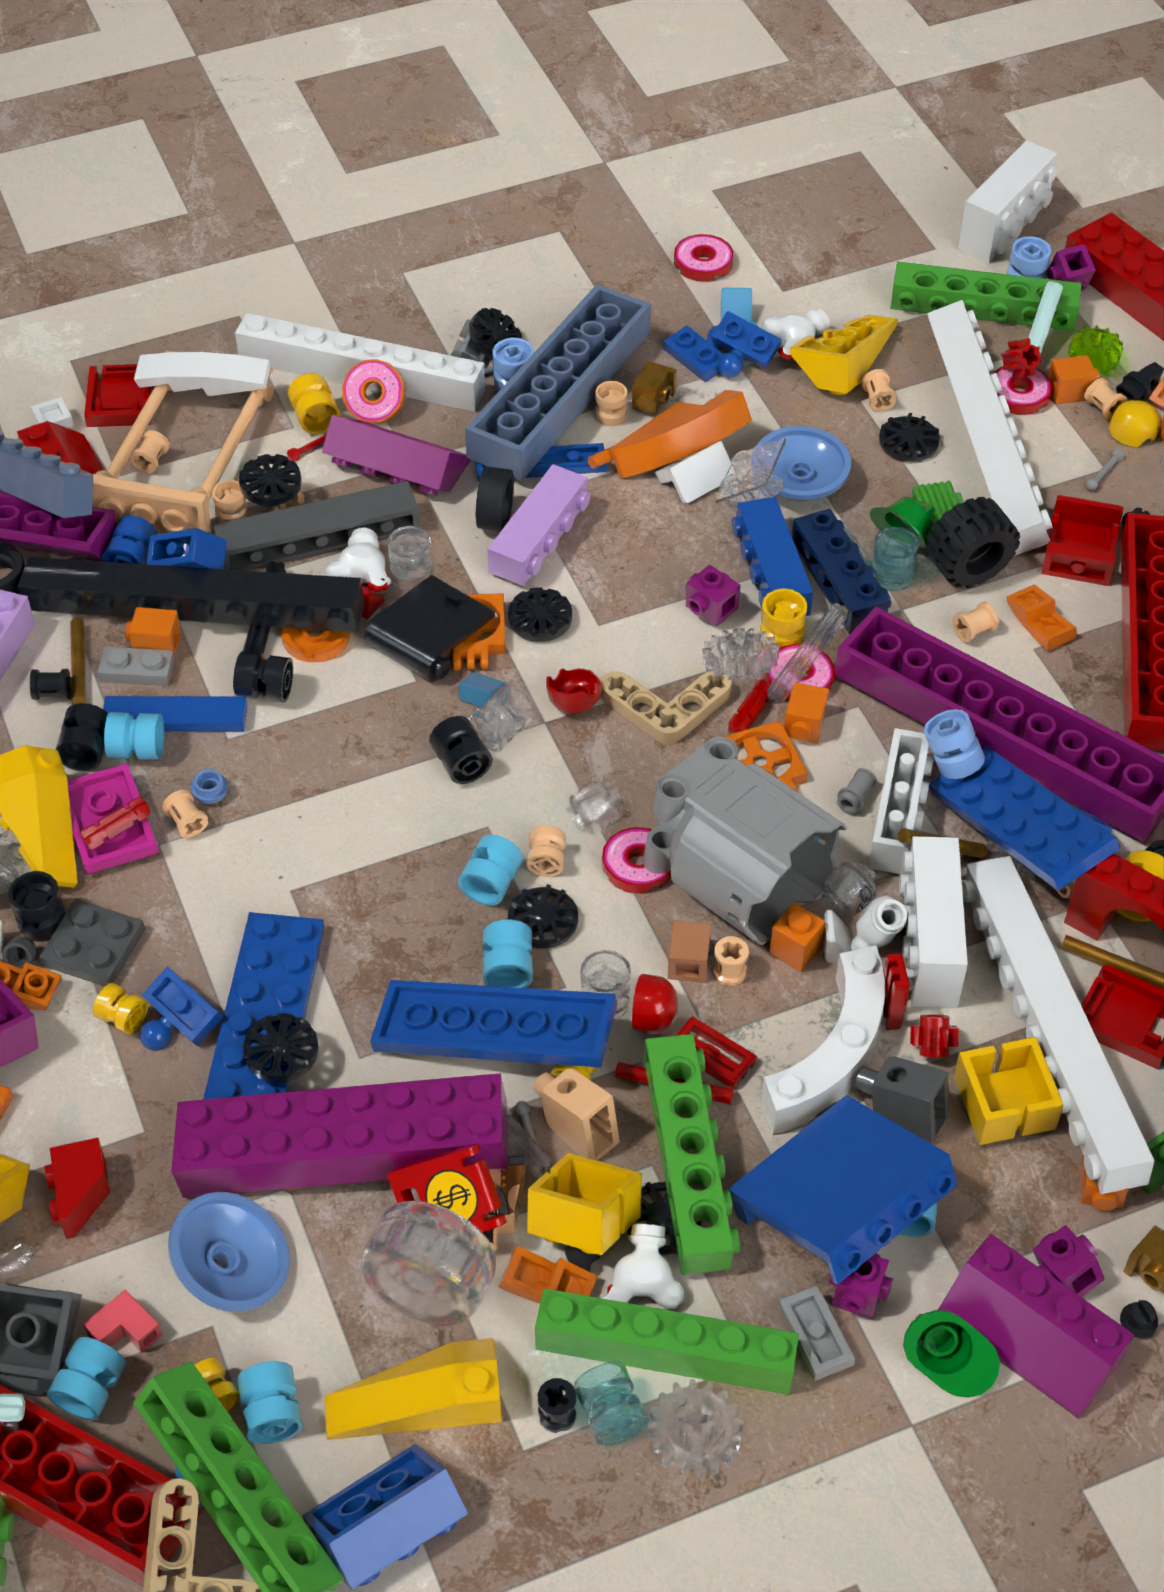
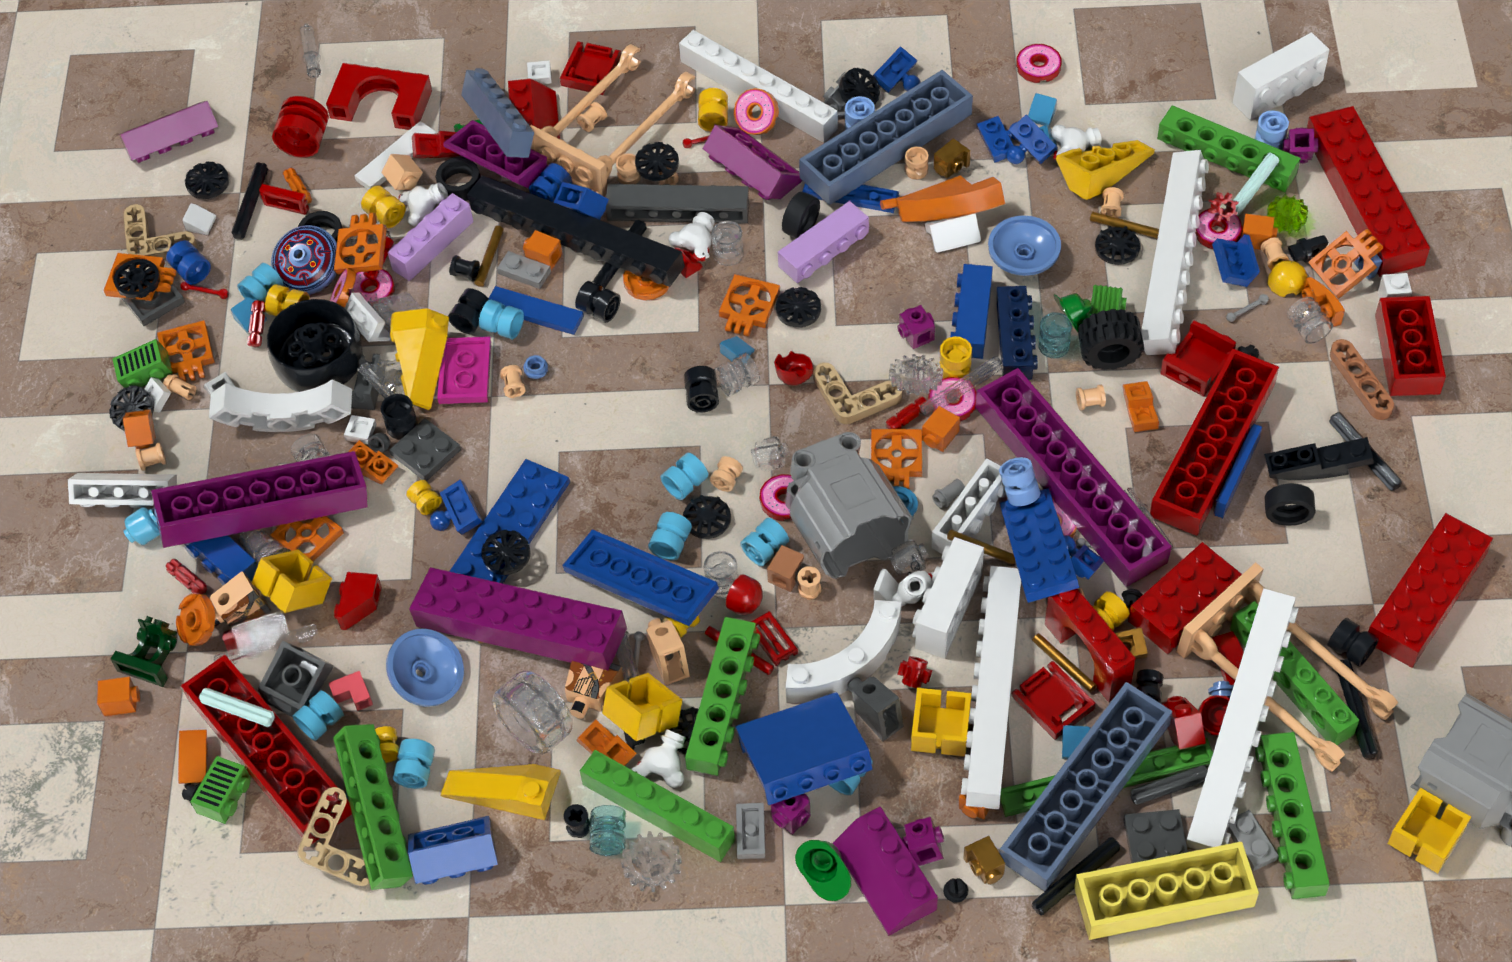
camera: 25 degrees right, 5 degrees up
(115, 823) = (465, 375): red axle -> none
(195, 370) = (649, 68): white slope -> none
(426, 626) = (718, 294): black door -> none
(451, 1184) = (564, 672): red container -> none
(530, 305) = (896, 70): none -> blue plate
(644, 924) = (762, 544): none -> medium azure wheel
(752, 475) = (981, 246): clear hinge -> none
(797, 937) = (858, 580): orange brick -> none
(886, 412) = (1116, 222): none -> pearl gold bar
(896, 991) = (899, 635): red tile -> none
(1067, 416) = (1236, 260): none -> blue bracket

